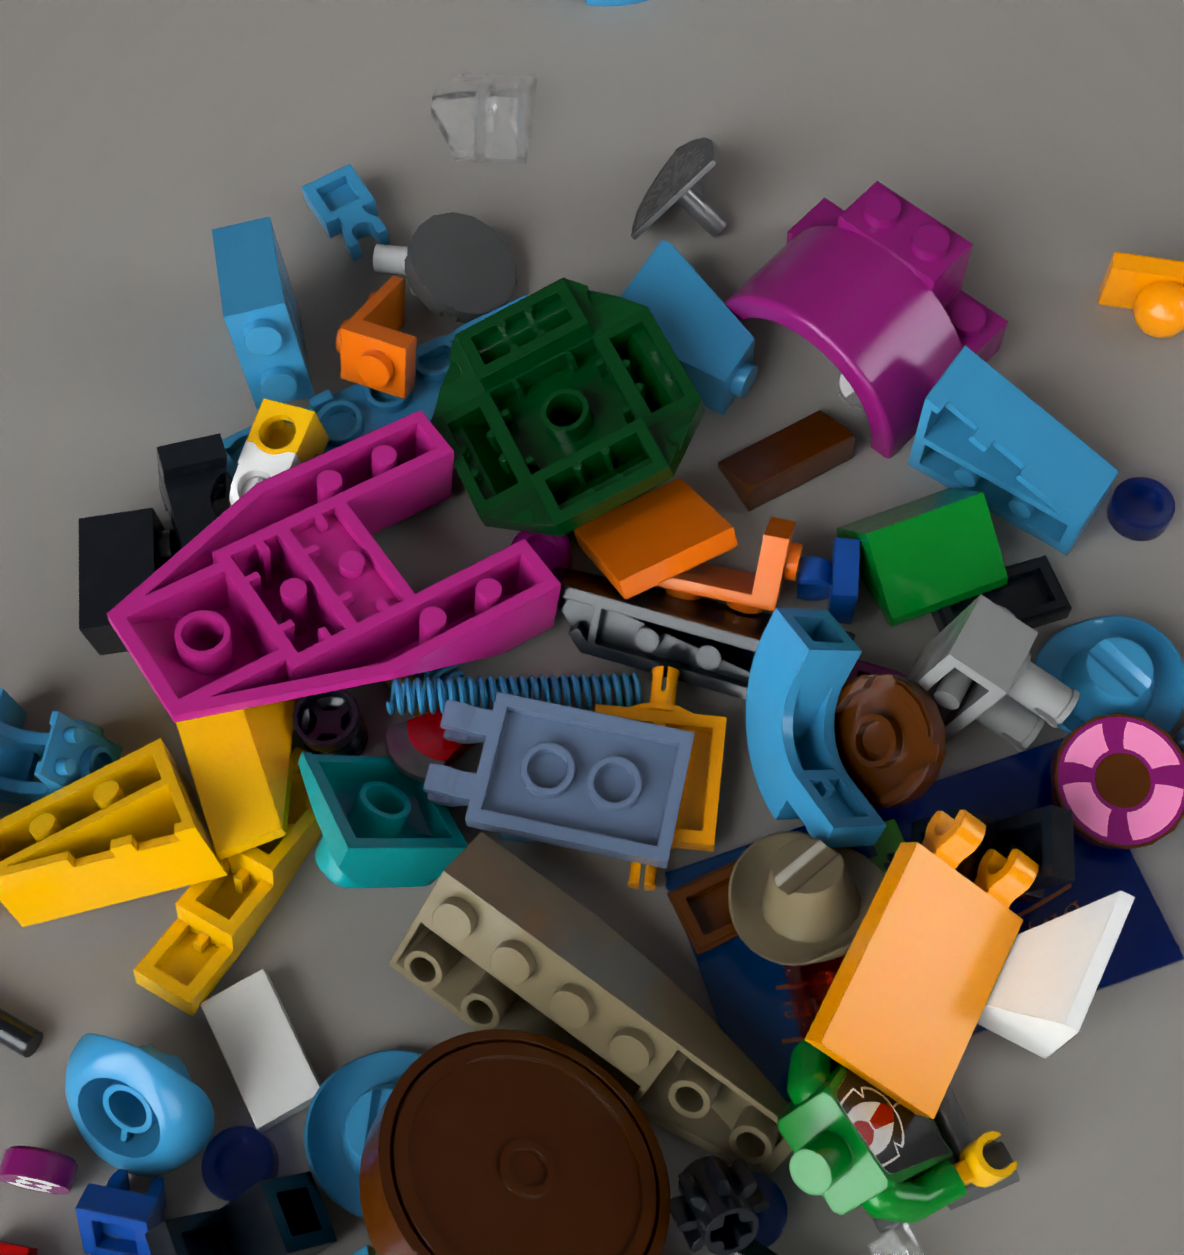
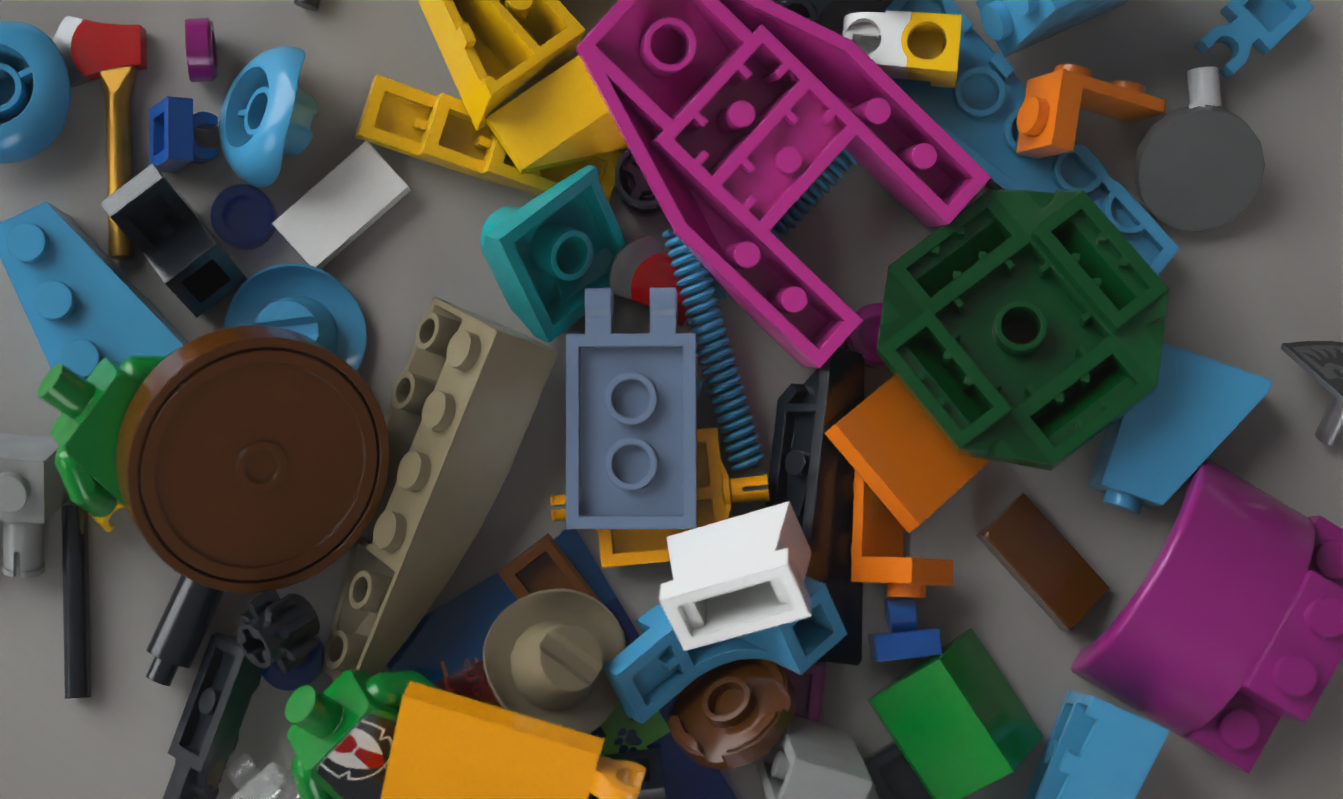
camera: 70 degrees right, 20 degrees up
(753, 689) = (737, 576): none -> white hips

